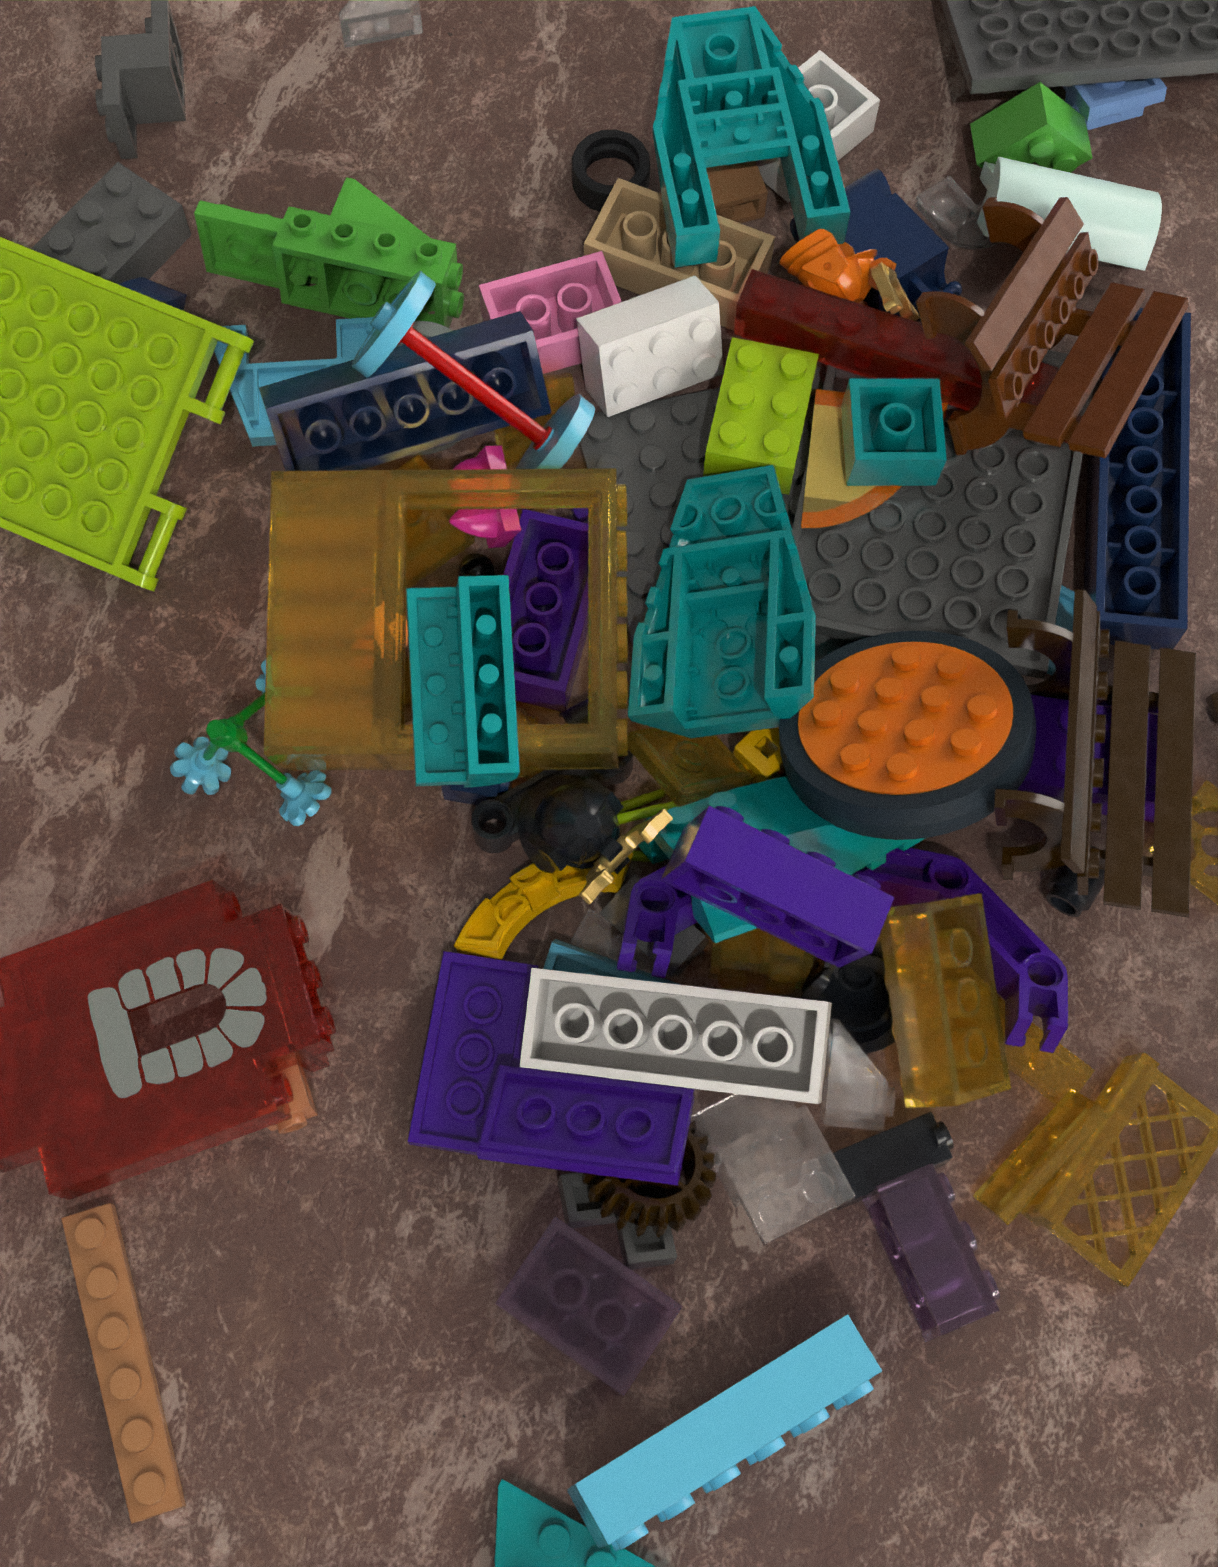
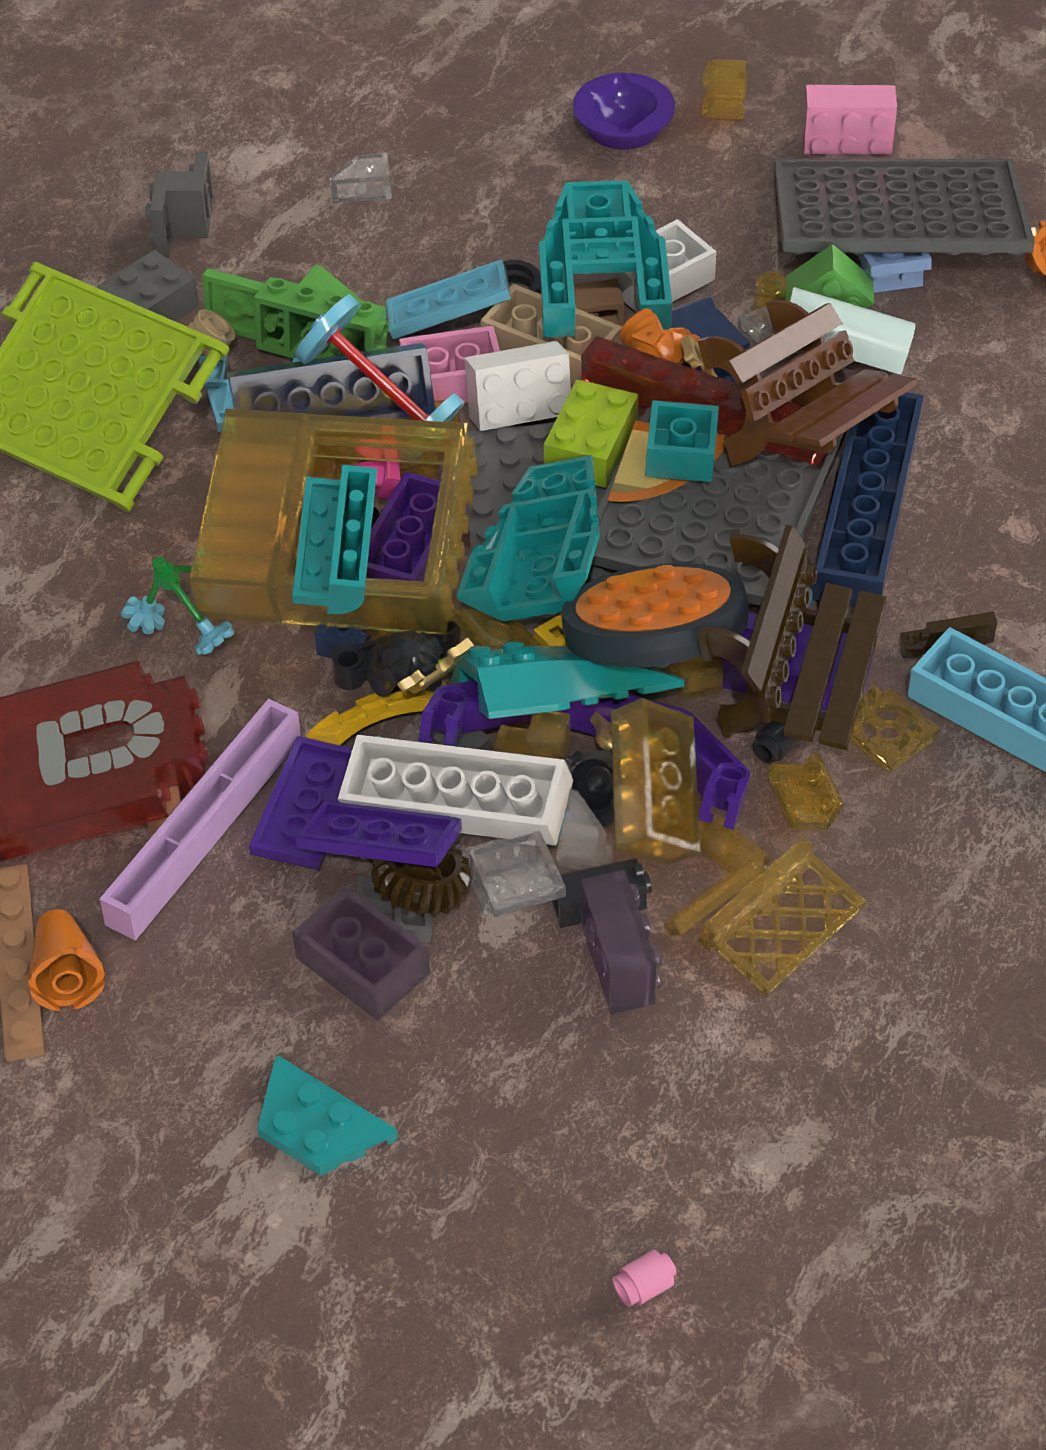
camera: 10 degrees right, 20 degrees down
(185, 1367) = (63, 964): none -> orange cone
(216, 290) = (213, 326): none -> tan wheel
(336, 1111) = (200, 820): none -> lavender brick
(531, 206) = (448, 299): none -> medium azure tile
(722, 1432) = (442, 1025): medium azure brick -> none
(778, 886) = (534, 674): dark purple brick -> none
(955, 152) = (768, 287): none -> clear yellow brick
(1130, 966) = (806, 793): none -> clear yellow bracket

